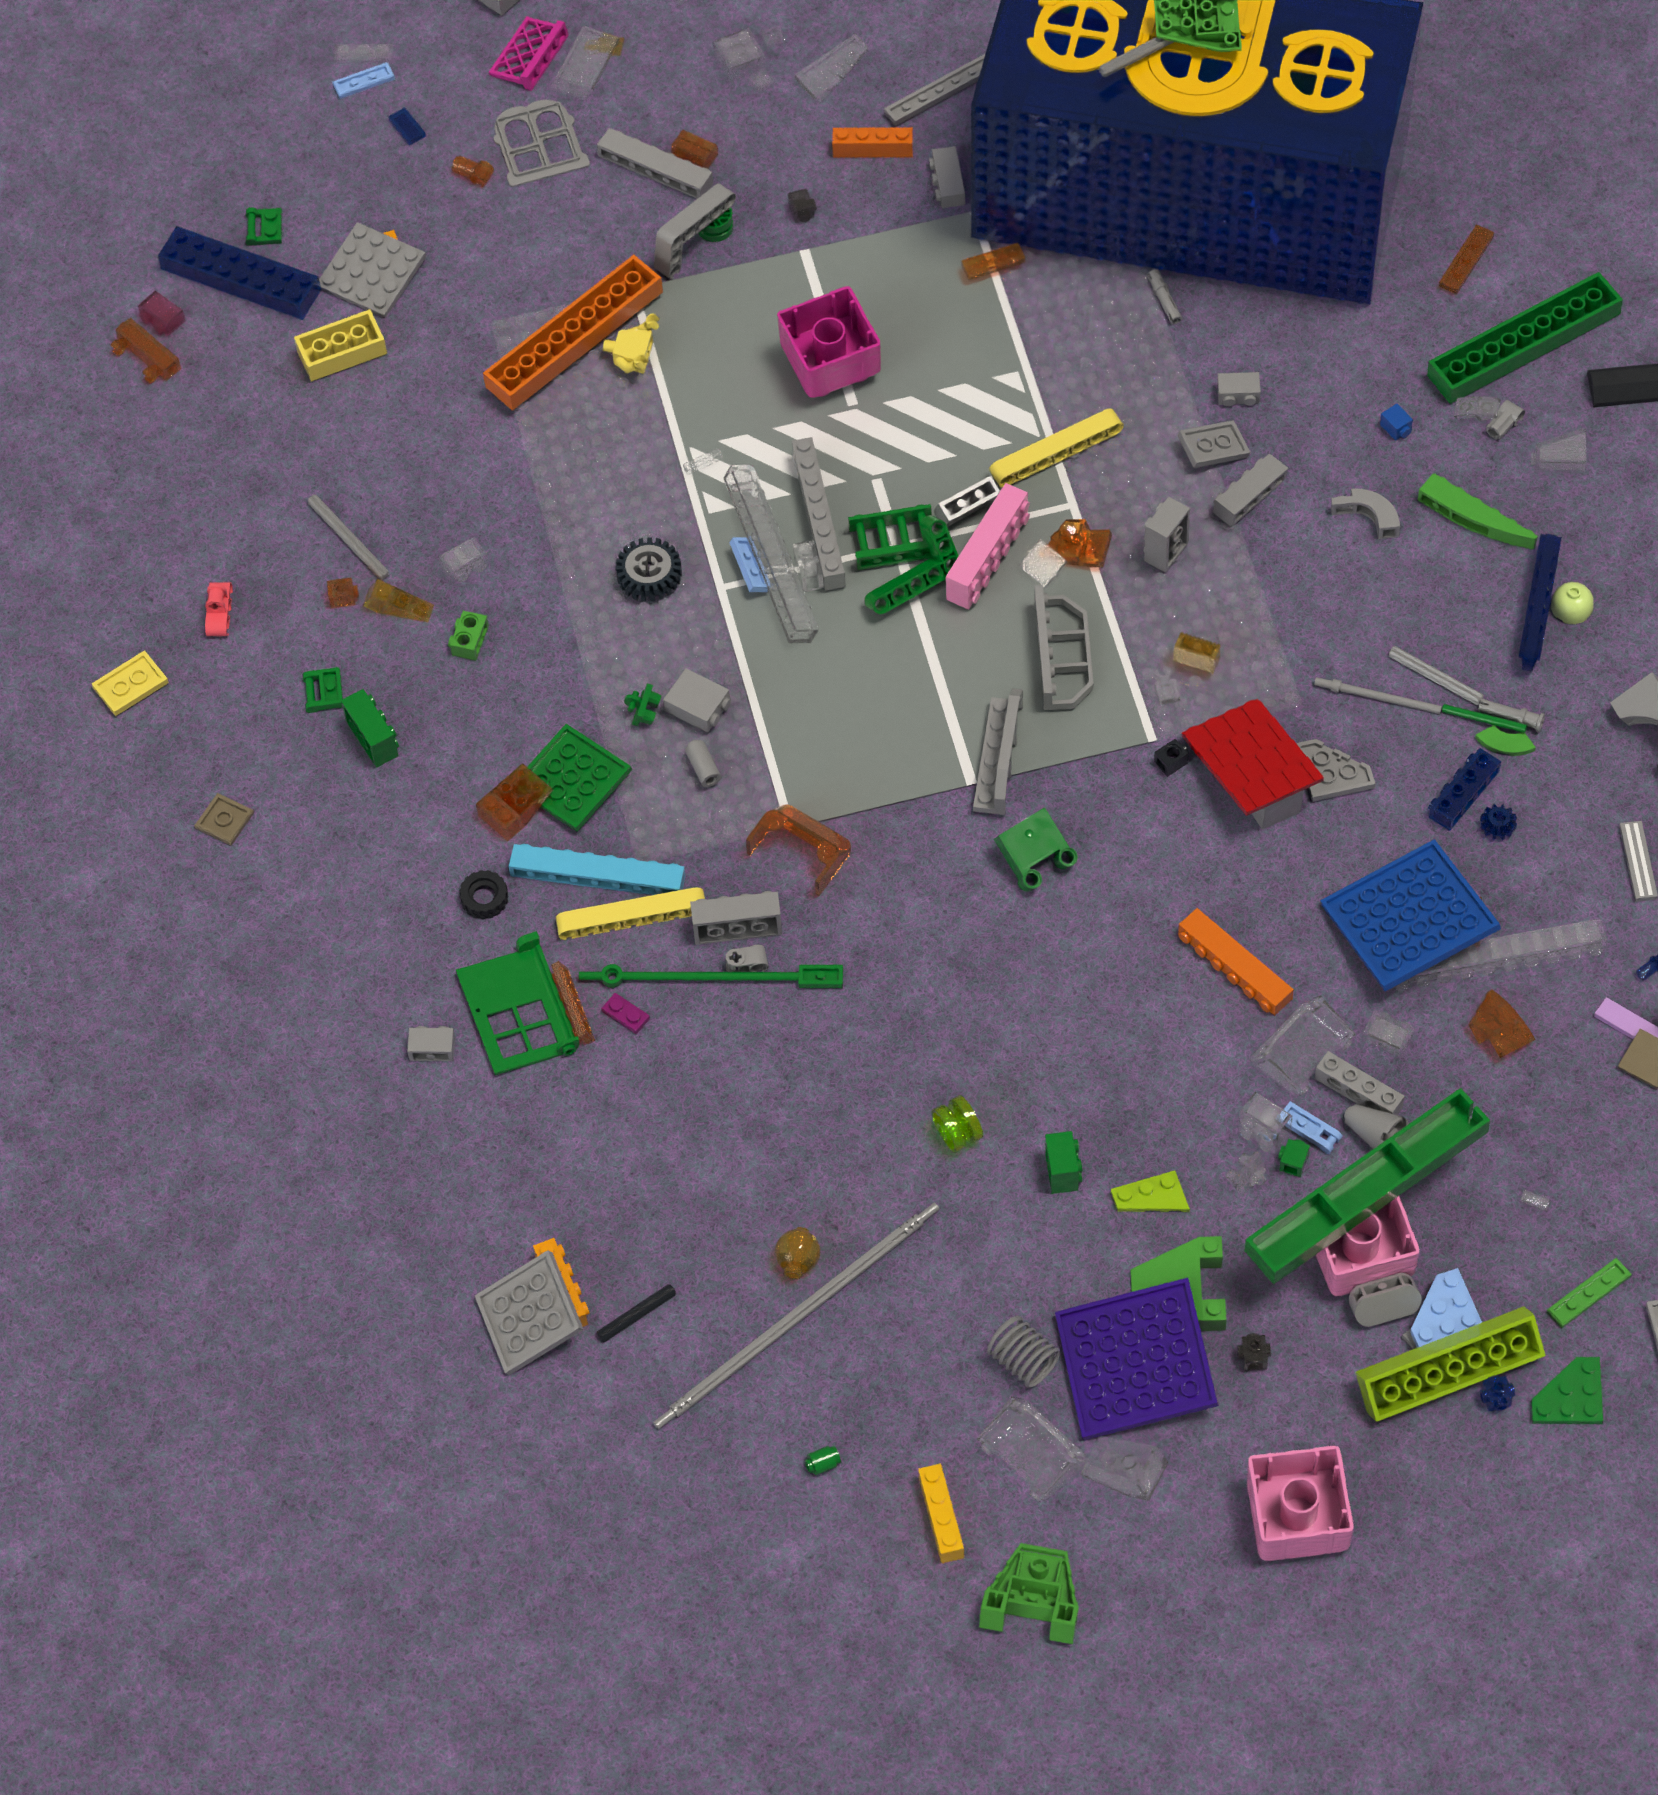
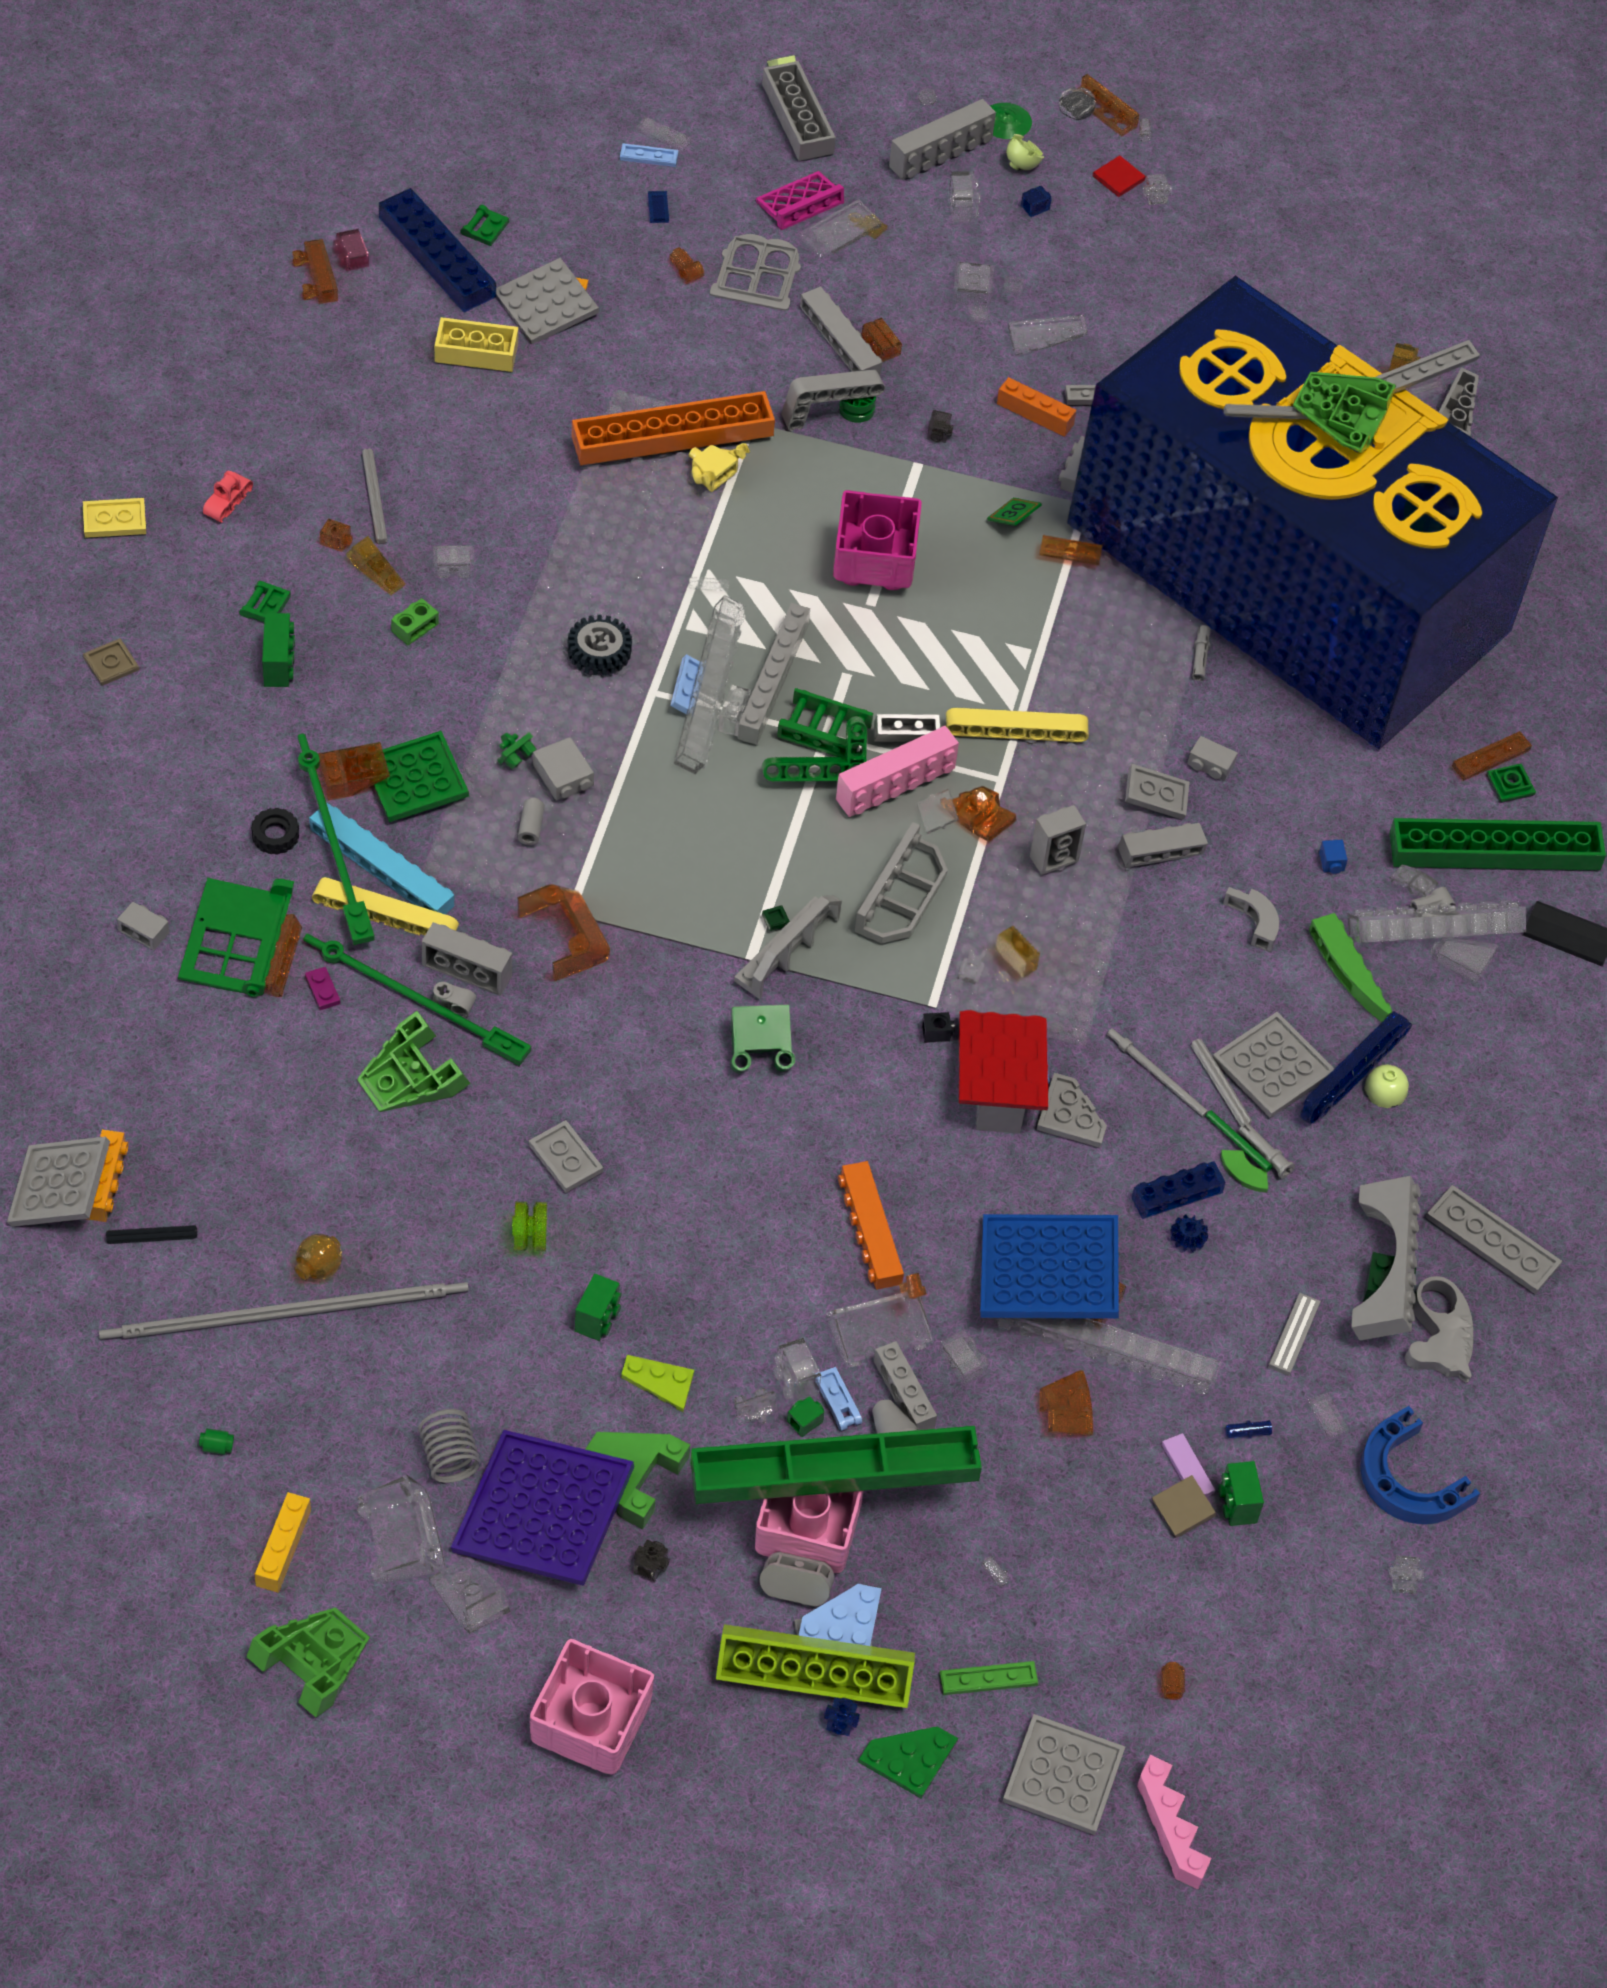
camera: 20 degrees right, 5 degrees down
(610, 930) = (354, 911): none -> green bar
(750, 1052) = (403, 1075): none -> bright green wedge
(922, 251) = (1014, 511): none -> green piece
(939, 1045) = (565, 1156): none -> light grey plate
(970, 735) = (775, 918): none -> dark green tile
(1314, 993) = (913, 1286): none -> clear orange brick
(1468, 635) = (1273, 1064): none -> light grey plate
(1497, 283) = (1507, 790): none -> green piece
(1522, 435) = (1437, 922): none -> clear brick

